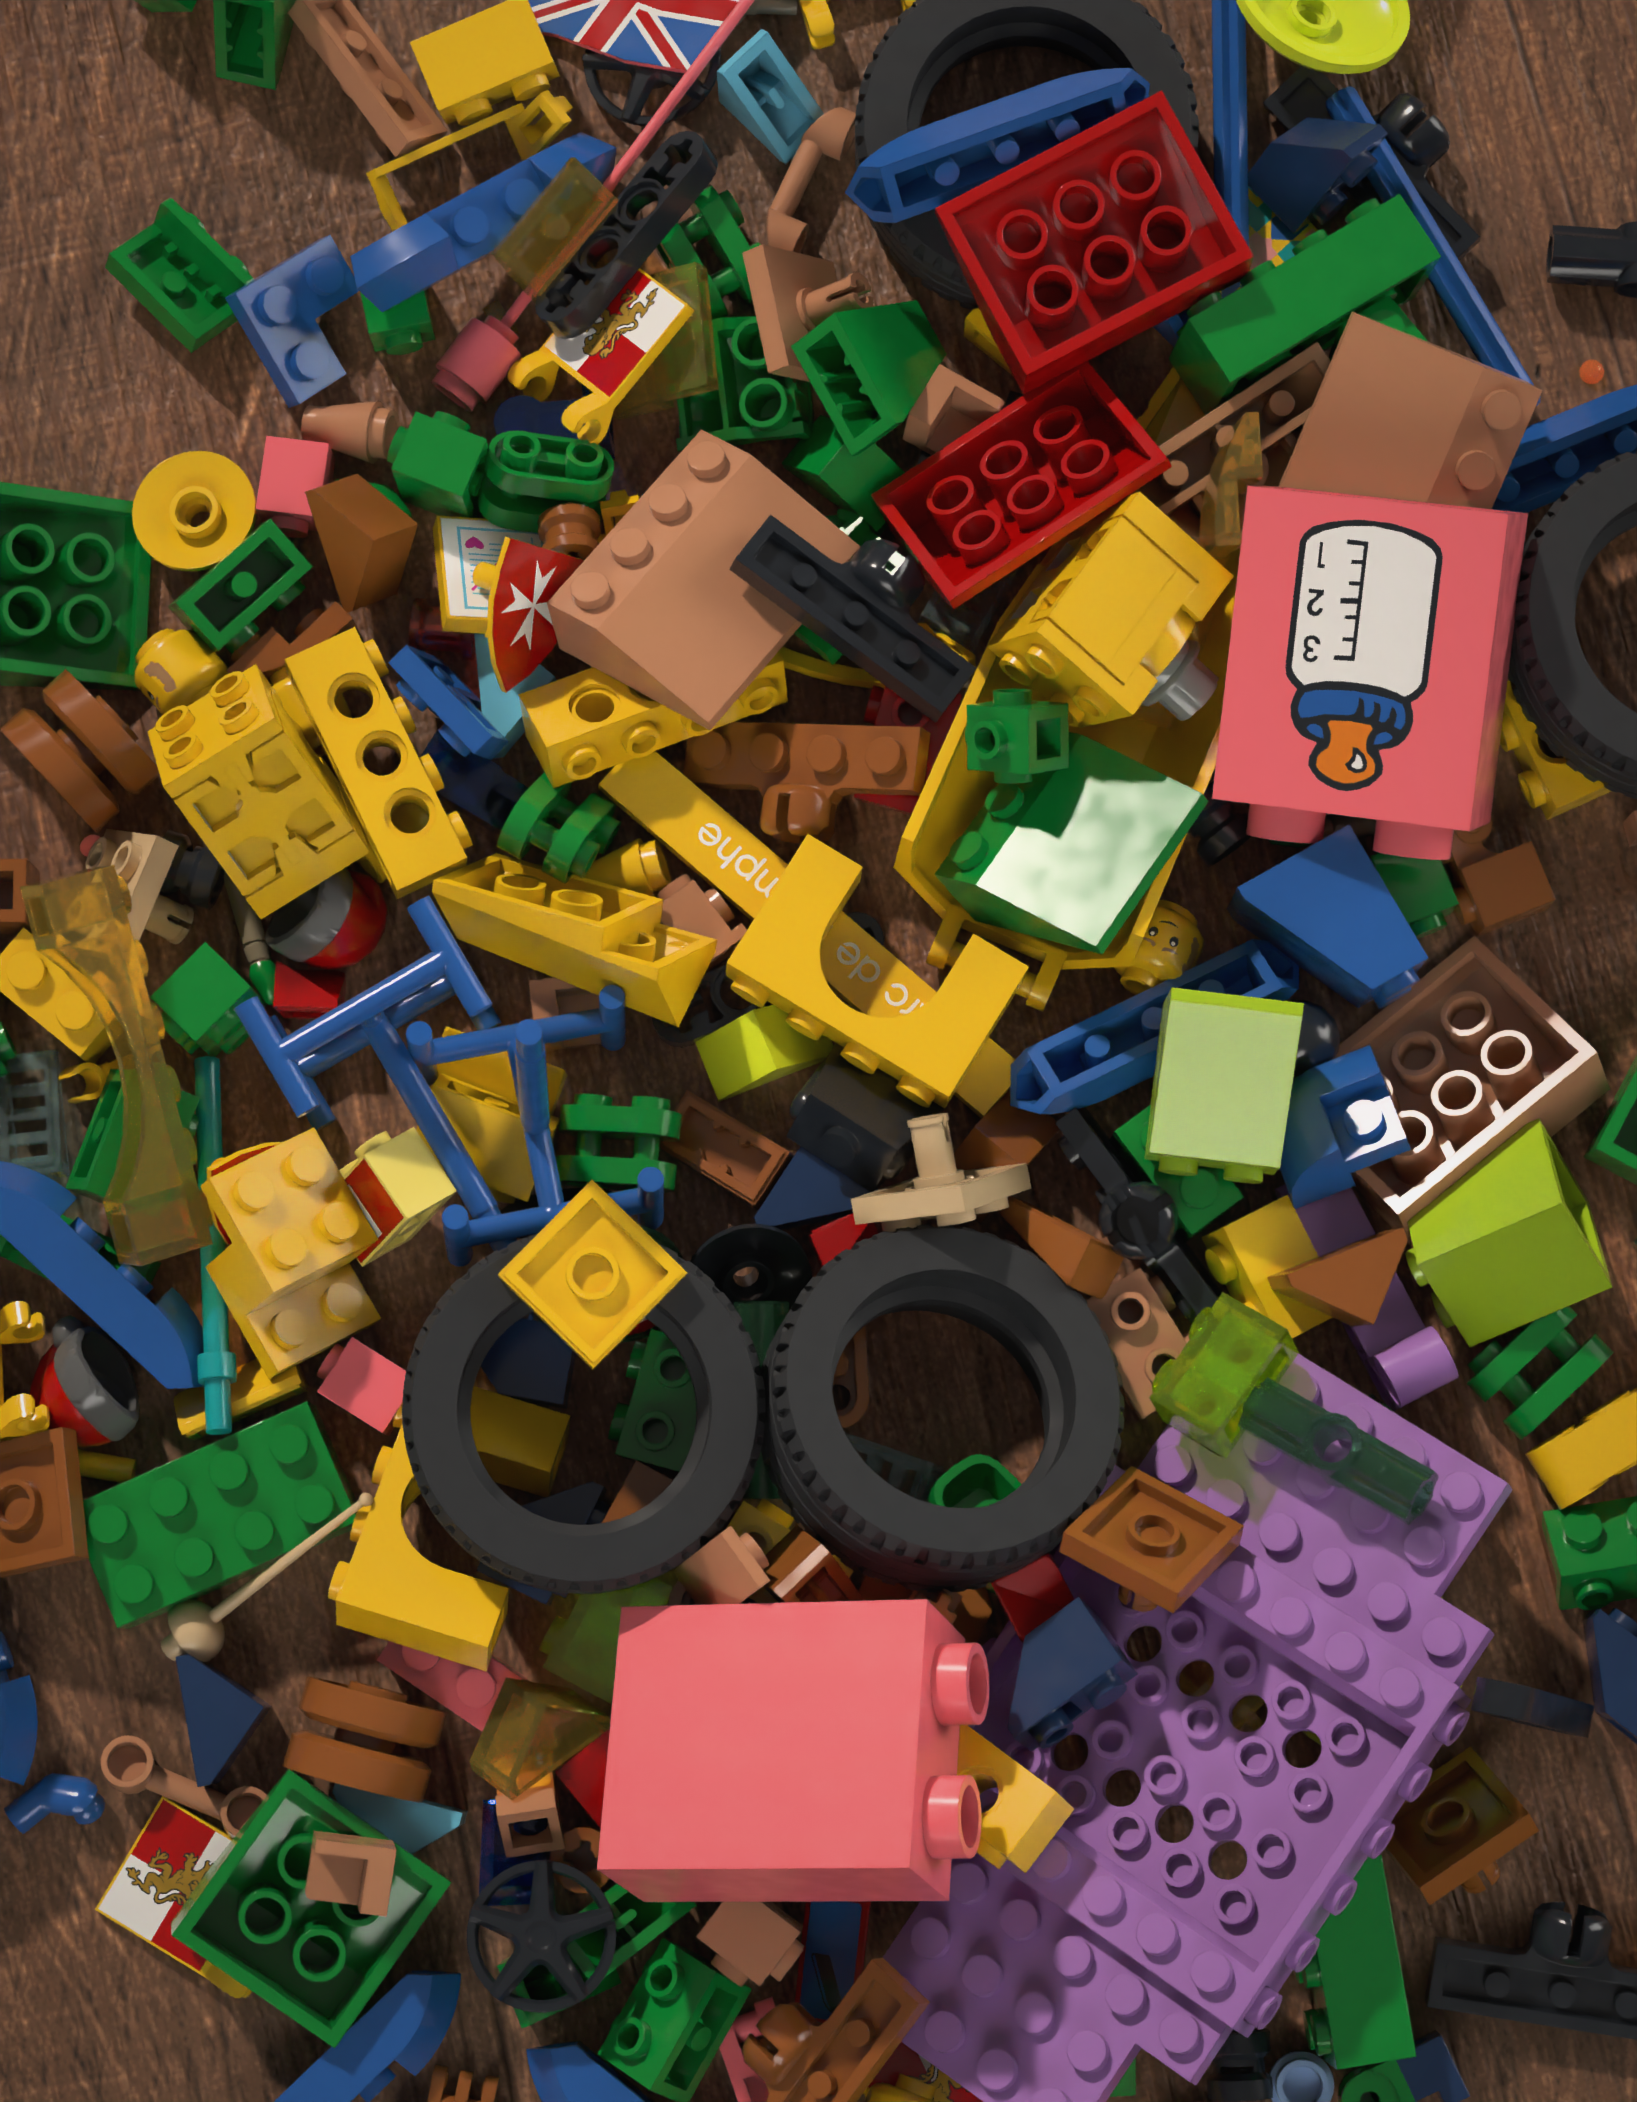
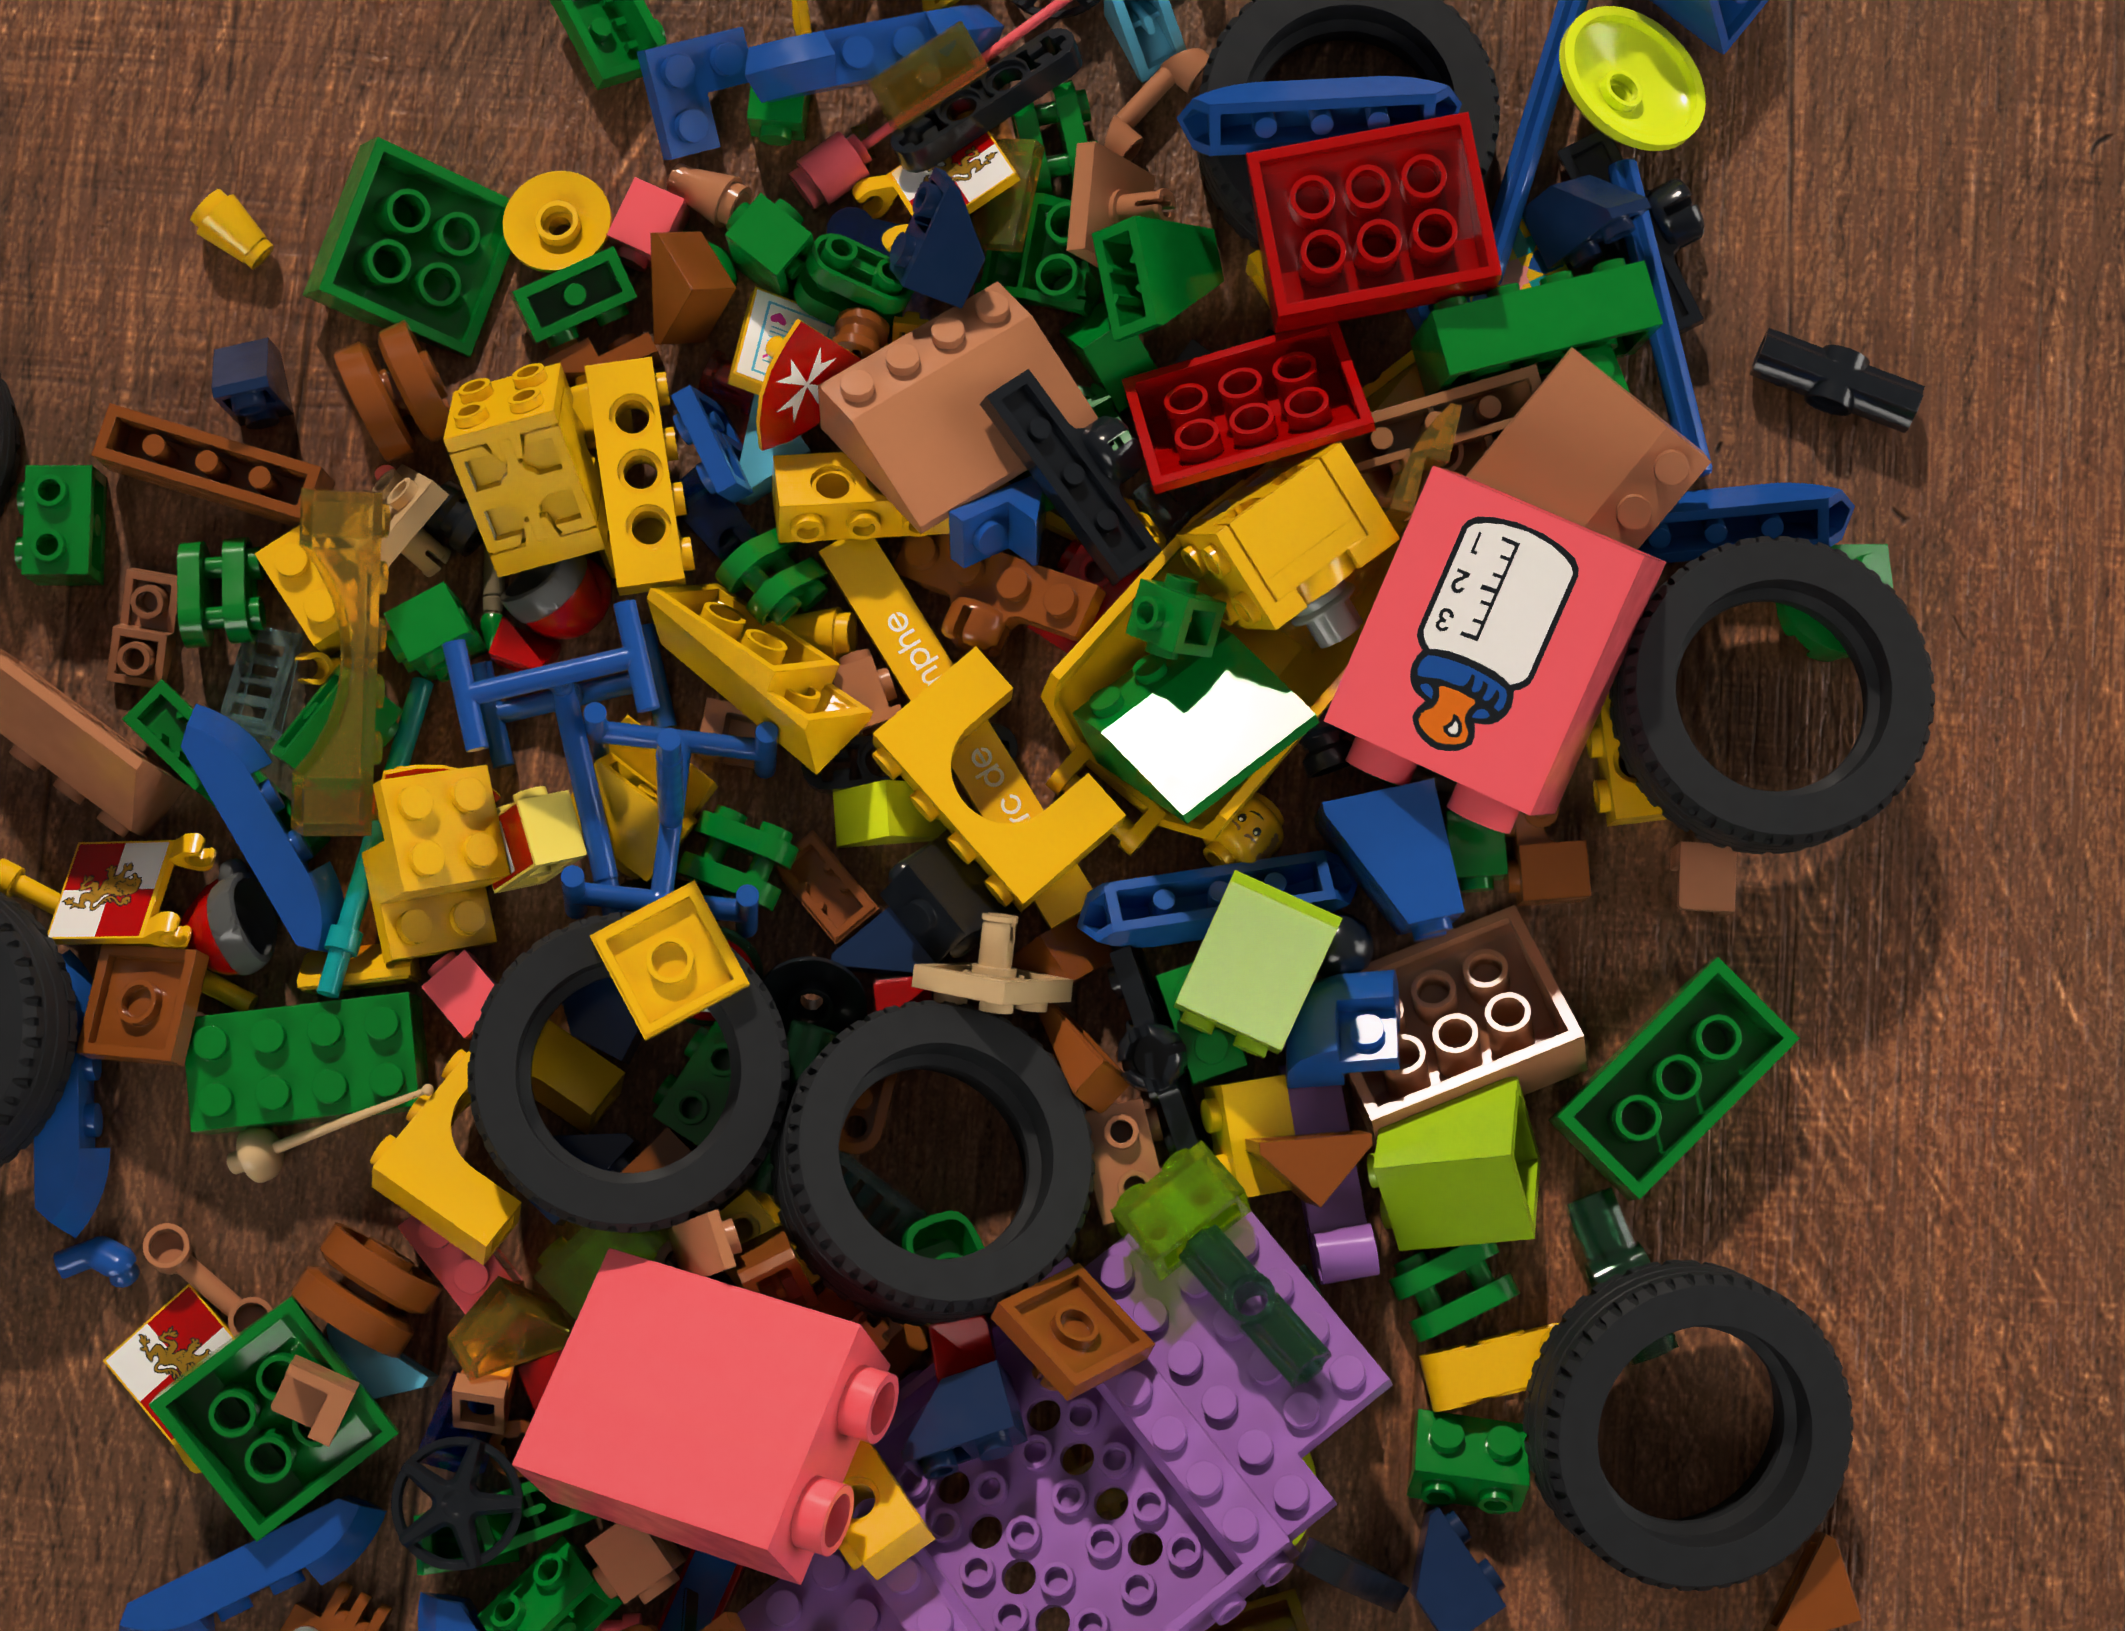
camera: 15 degrees right, 0 degrees up
(176, 669) = (499, 346): yellow head -> none
(218, 1717) = (253, 1233): dark blue slope -> none
(630, 408) = (940, 246): none -> dark blue slope
(789, 690) = (999, 521): none -> blue slope
(948, 410) = (1208, 327): nougat panel -> none
(1591, 371) = (1764, 461): piece -> none

